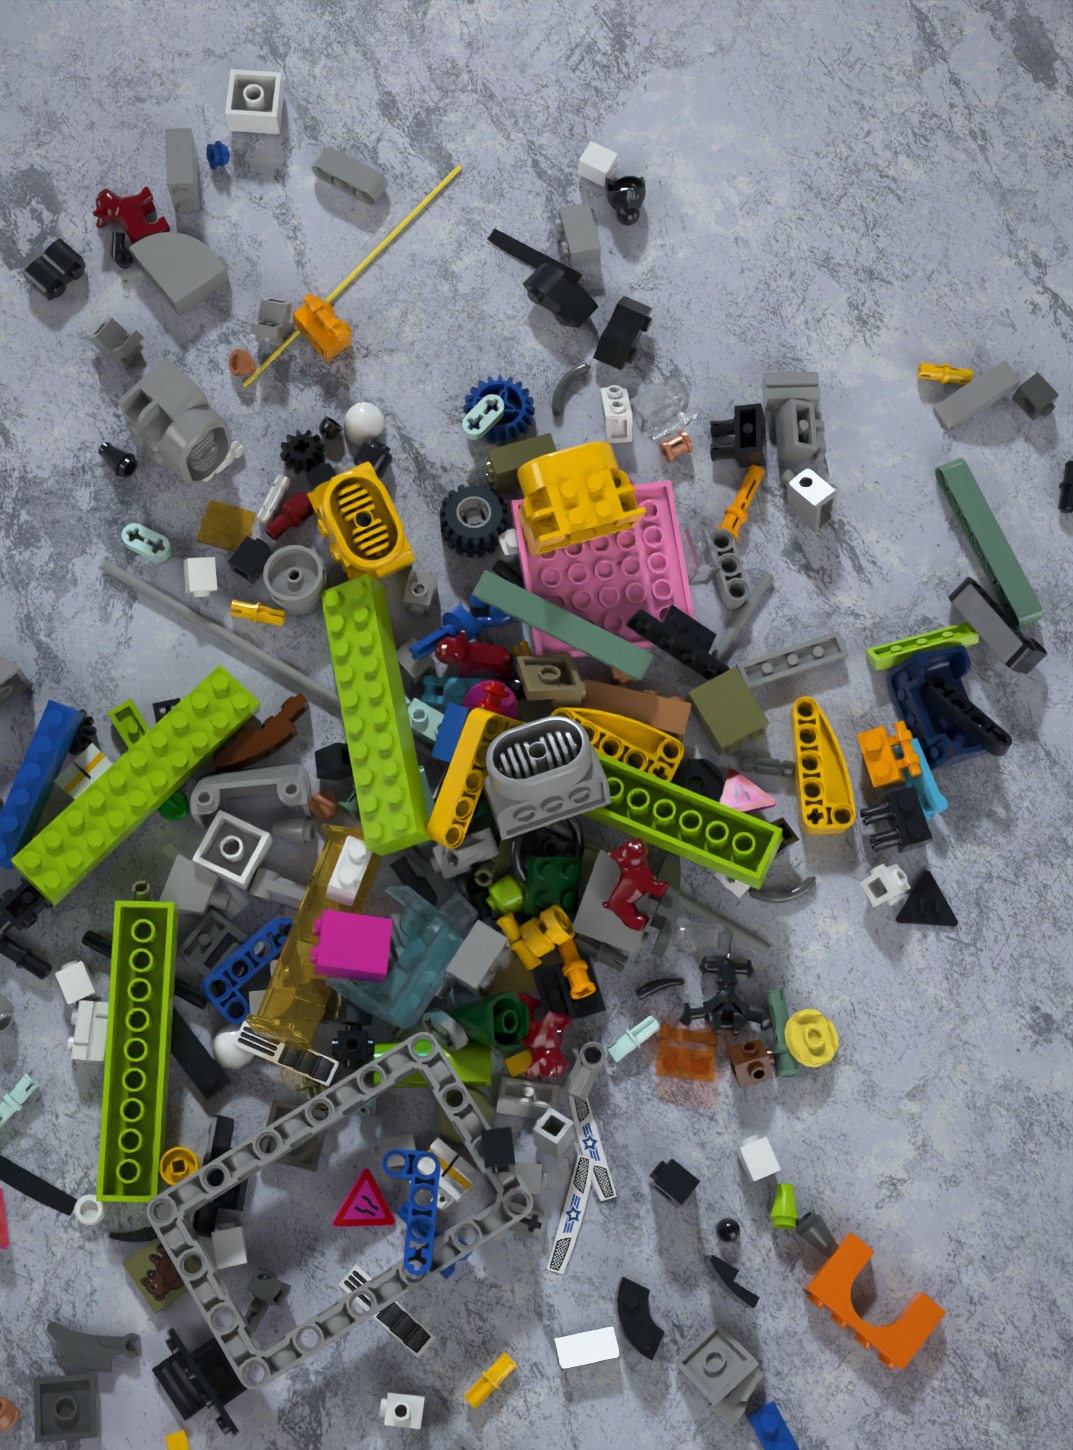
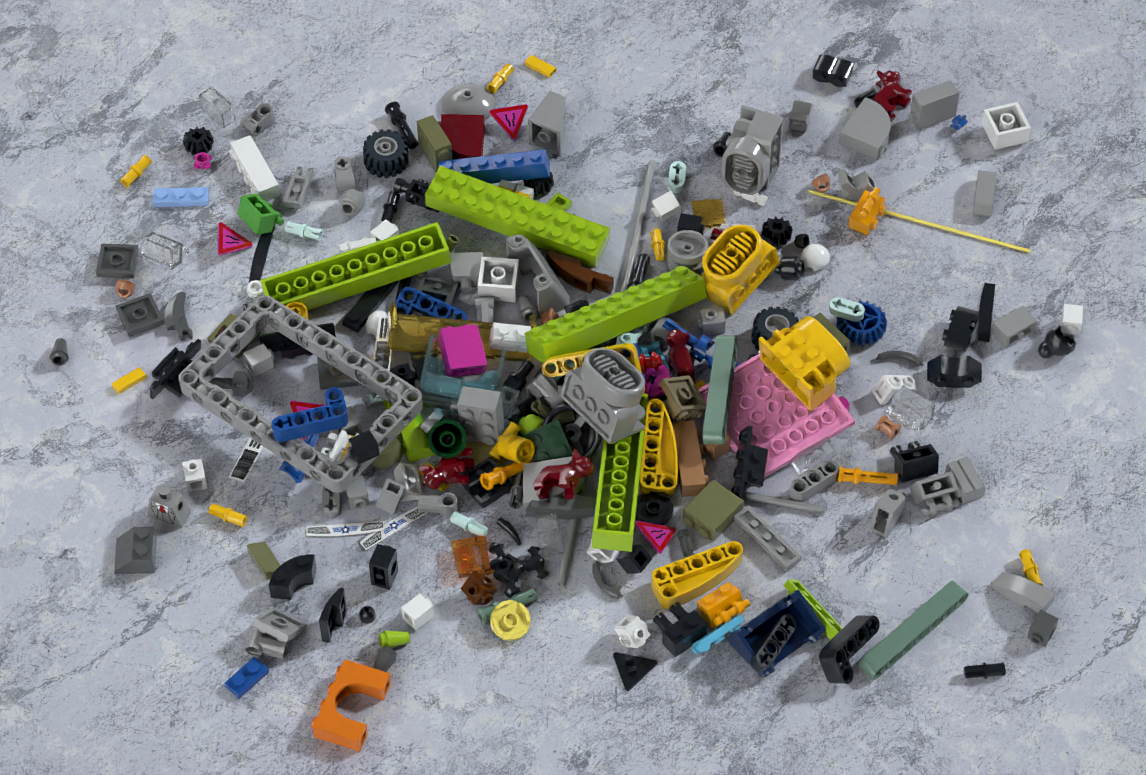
camera: 75 degrees right, 20 degrees down
(314, 666) = (640, 270): none -> black pin

